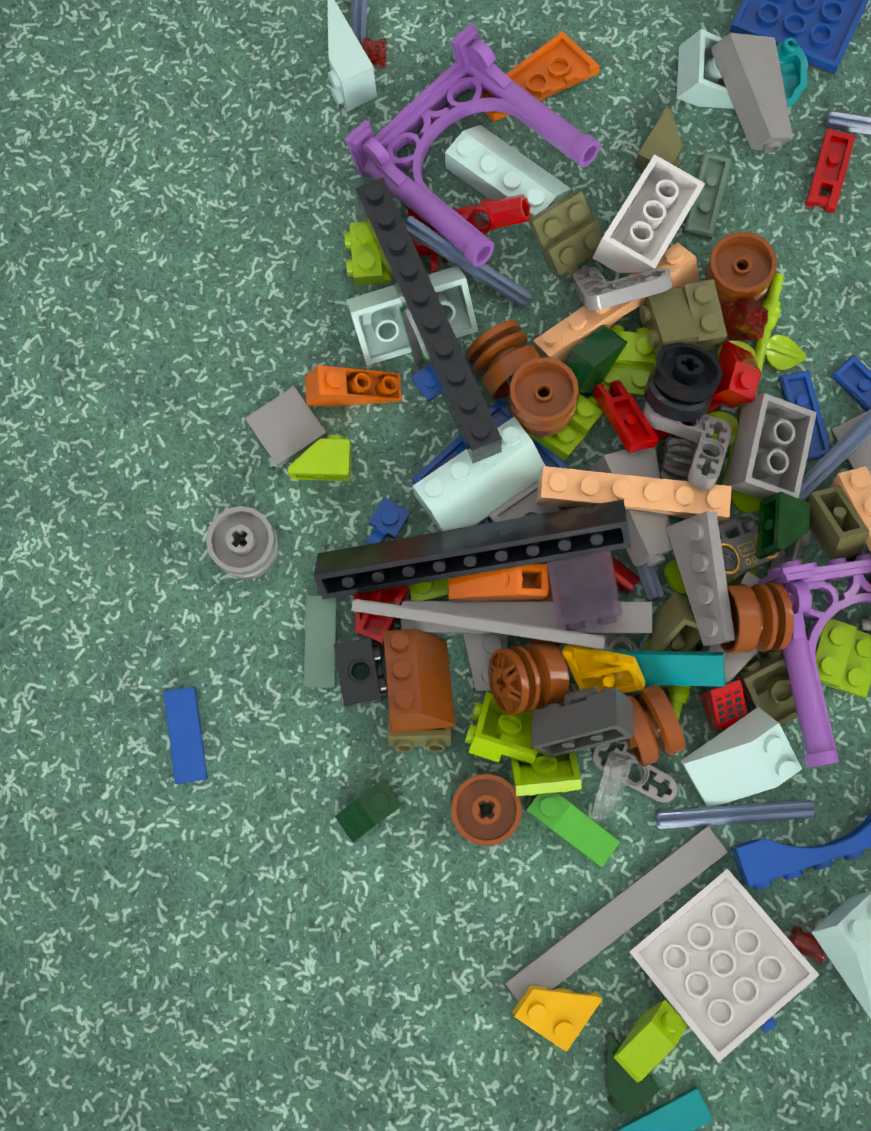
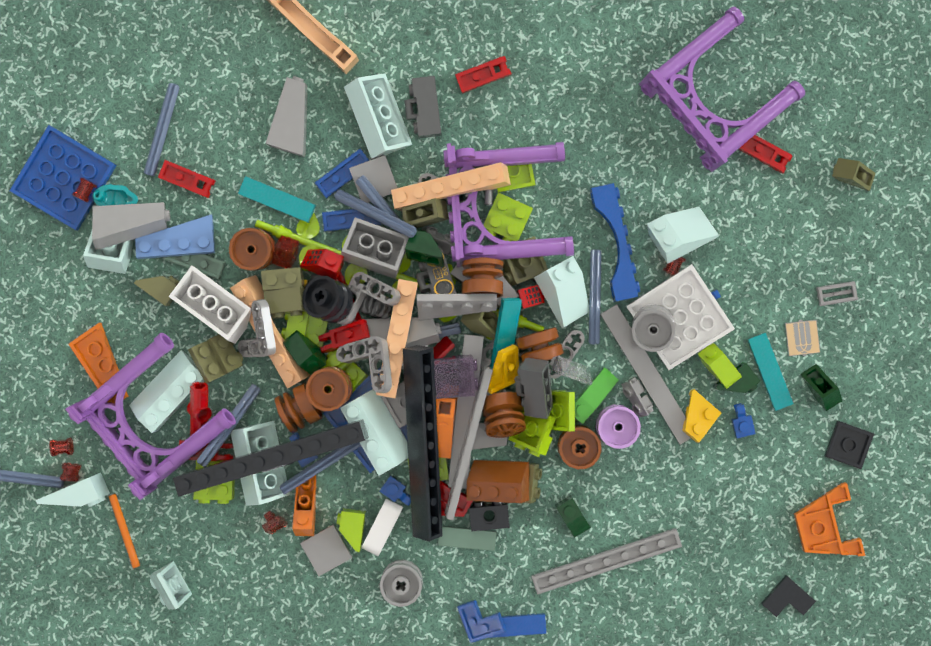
camera: 90 degrees left, 10 degrees up
(179, 672) = (478, 627): none -> blue tile
(218, 202) = (170, 586): none -> light aqua slope
(293, 135) = (124, 531): none -> orange bar
(301, 877) = (606, 561): none -> light grey tile
(321, 343) = (273, 523): none -> clear red tile
(329, 505) = (382, 527): none -> white beam
(410, 37) = (61, 447): none -> clear red bush
(417, 401) = (317, 467): none -> sand blue axle
(527, 892) = (614, 437): none -> lavender wheel
(550, 1093) = (743, 424): none -> blue plate
(572, 469) = (374, 356): none -> light grey beam
(587, 891) = (640, 405): none -> light grey hinge
(700, 937) = (651, 339): none -> light grey wheel
(737, 171) = (181, 240): none -> medium blue wing
(795, 26) = (84, 189): none -> clear red bush
(819, 302) = (277, 199): none -> teal tile
(824, 448) = (375, 213): none -> sand blue axle

